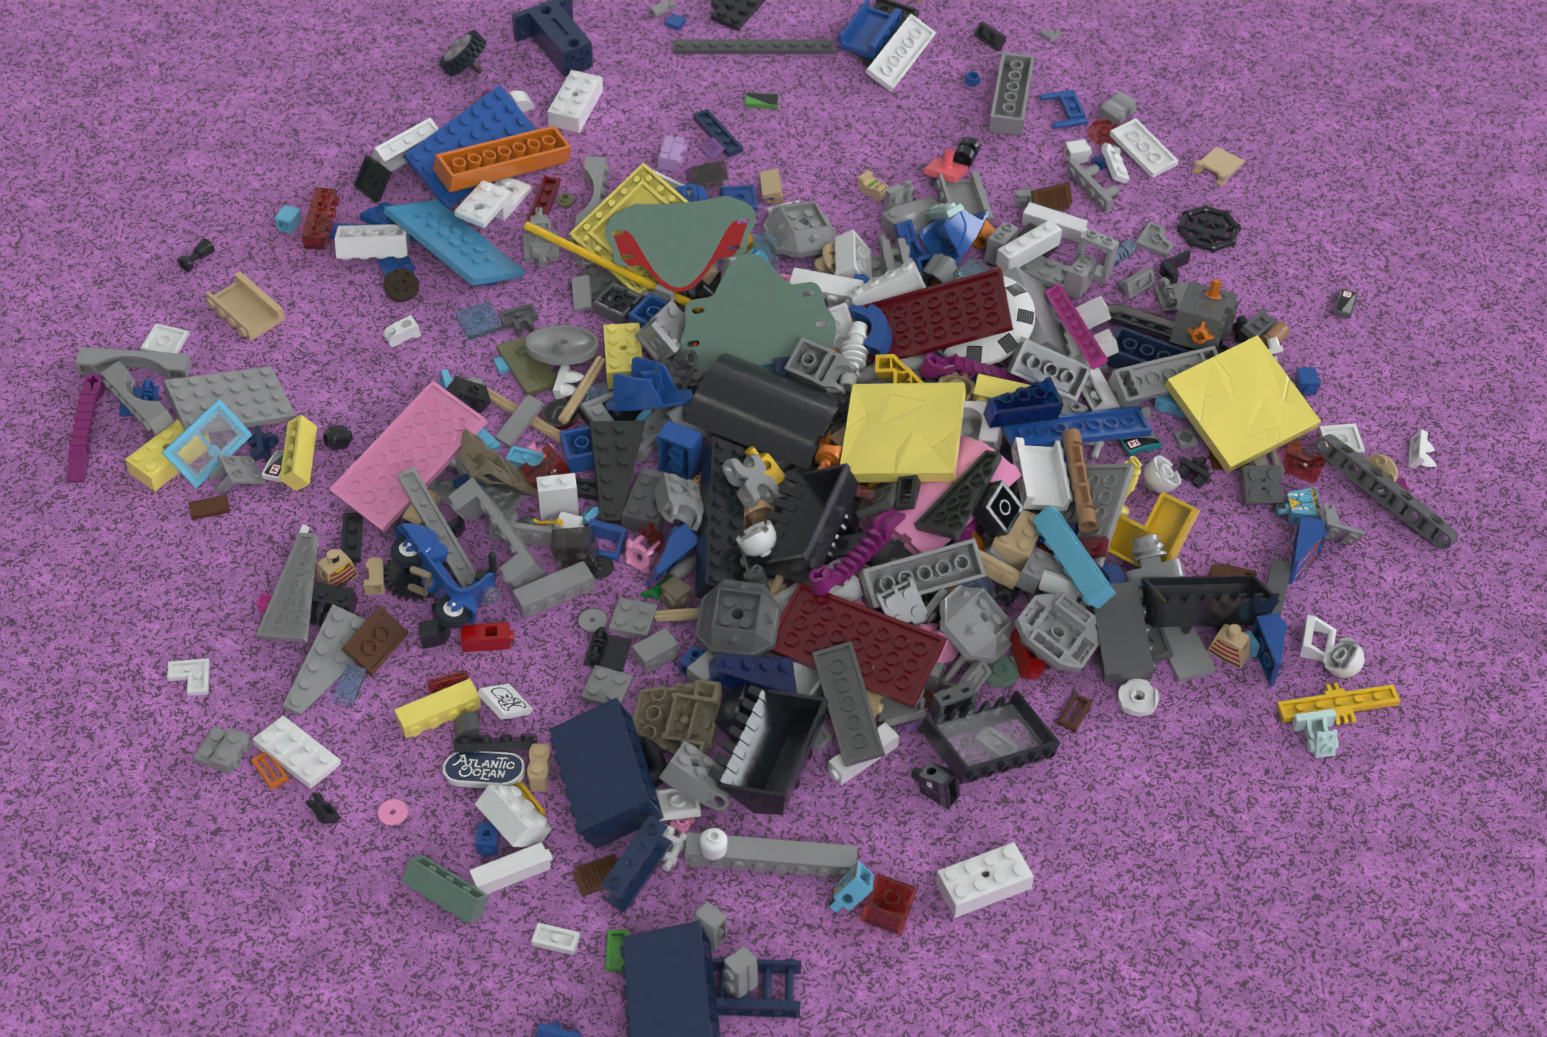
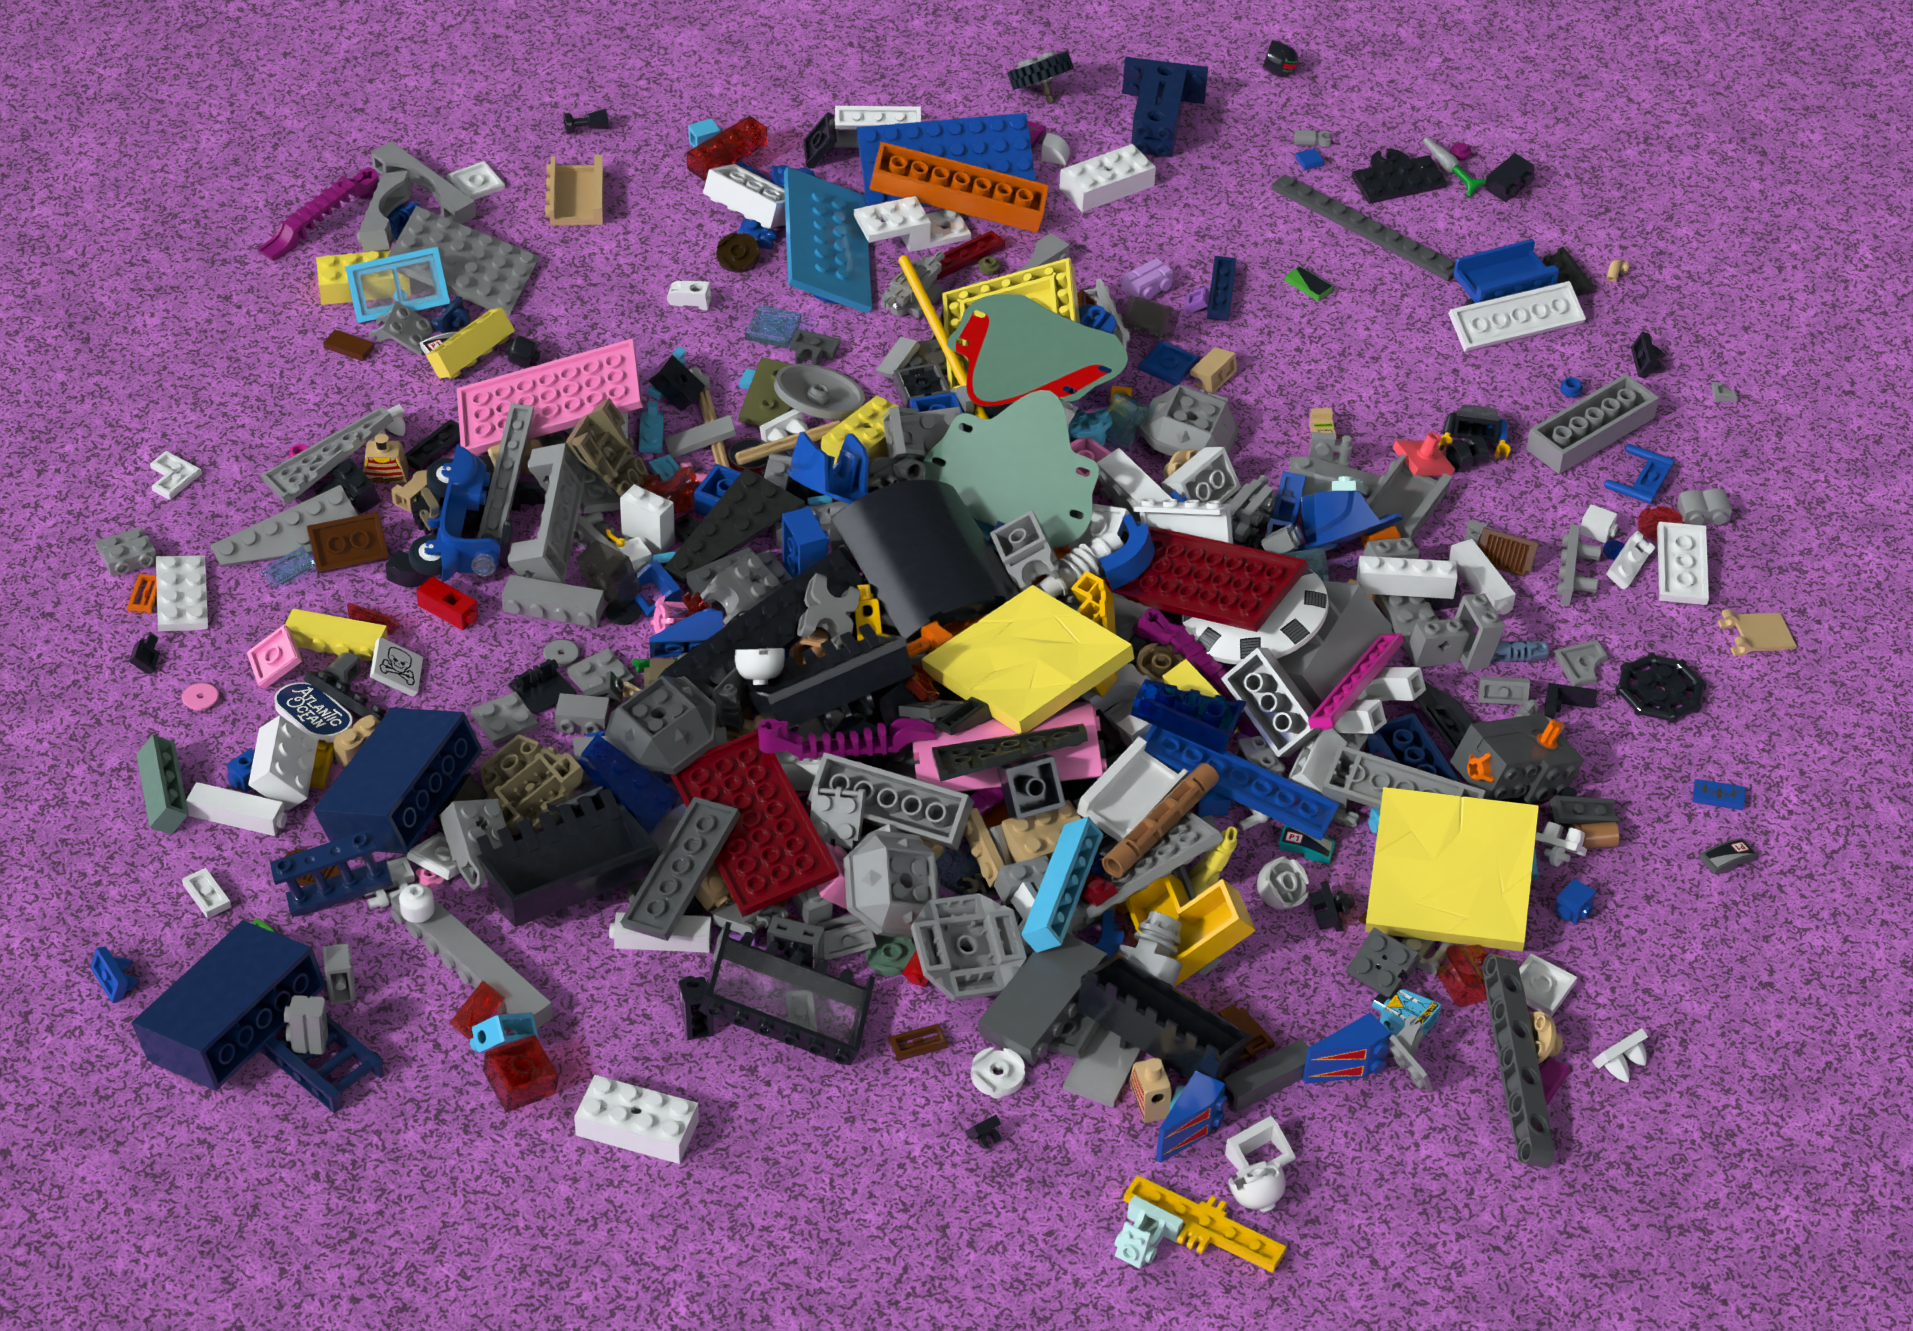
camera: 40 degrees right, 5 degrees down
(416, 750) = (274, 656): none -> bright pink tile
(659, 624) = (612, 688): none -> dark grey bracket
(815, 885) = (477, 1009): none -> clear red plate
(952, 130) = (1474, 421): none -> black torso
(1171, 736) = (983, 1129): none -> black tile
(1185, 439) = (1361, 872): light grey tile -> none
(1301, 271) = (1718, 794): none -> blue tile

